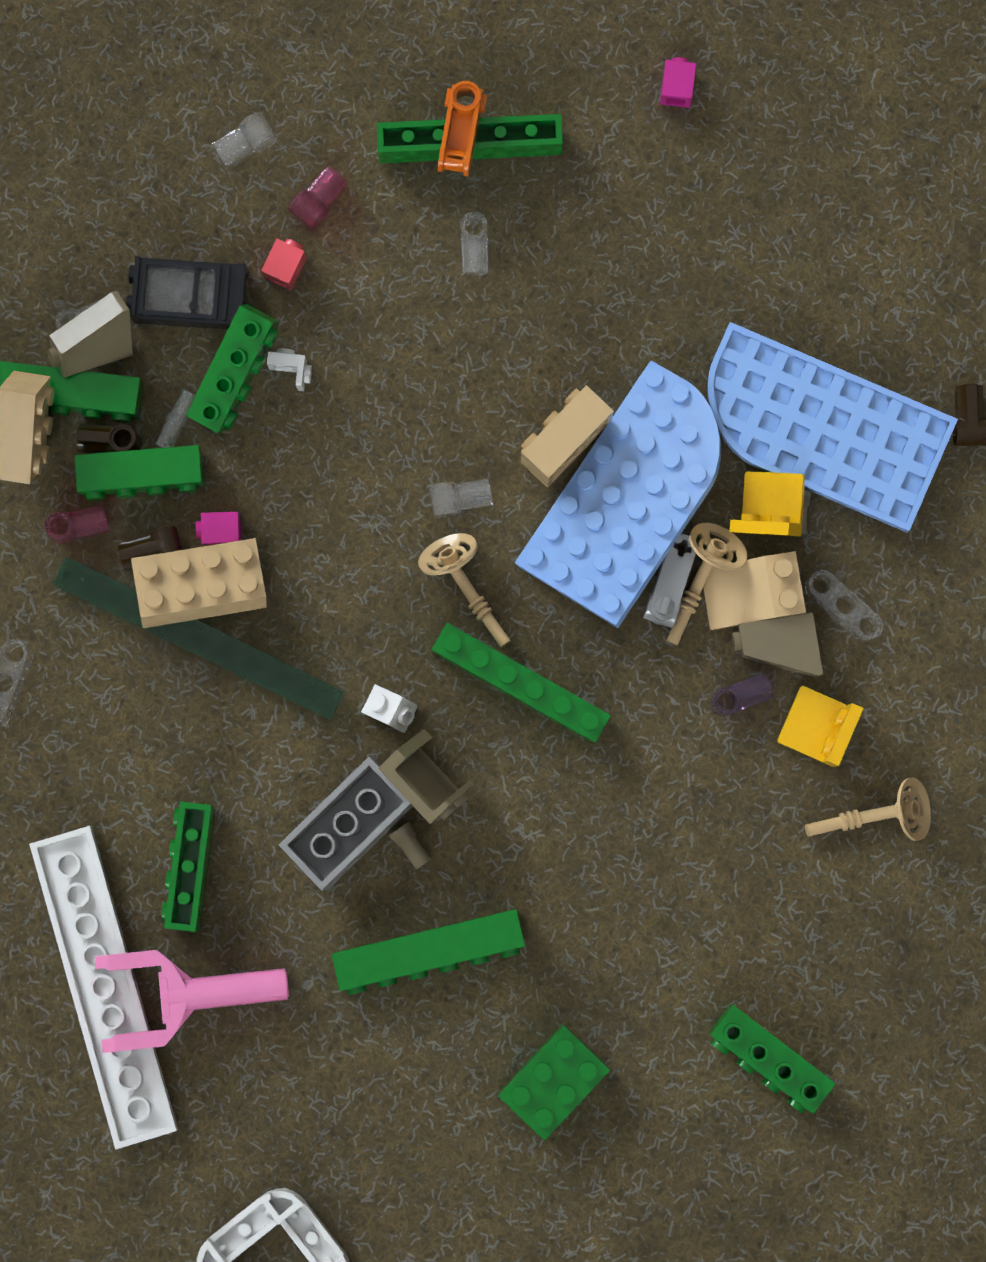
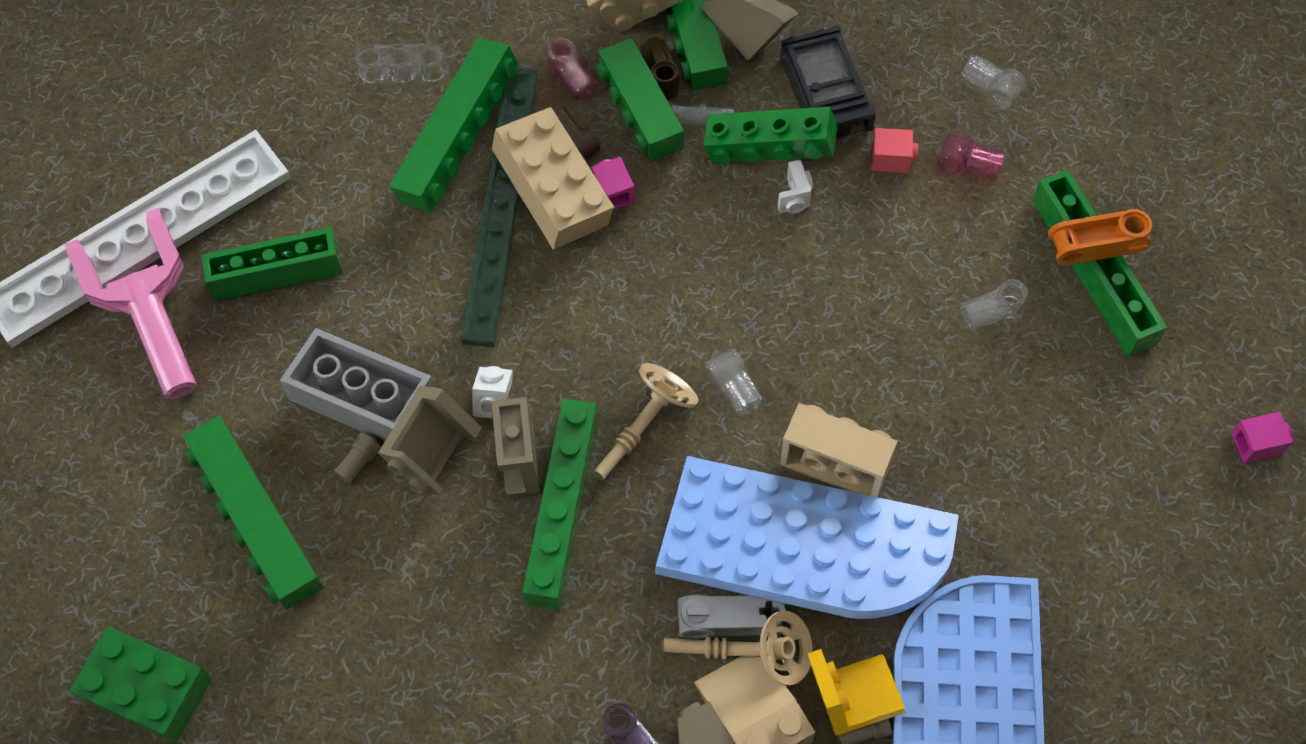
camera: 70 degrees right, 20 degrees down
(101, 652) = (454, 125): none -> green brick
(465, 704) = (516, 446): none -> dark tan panel

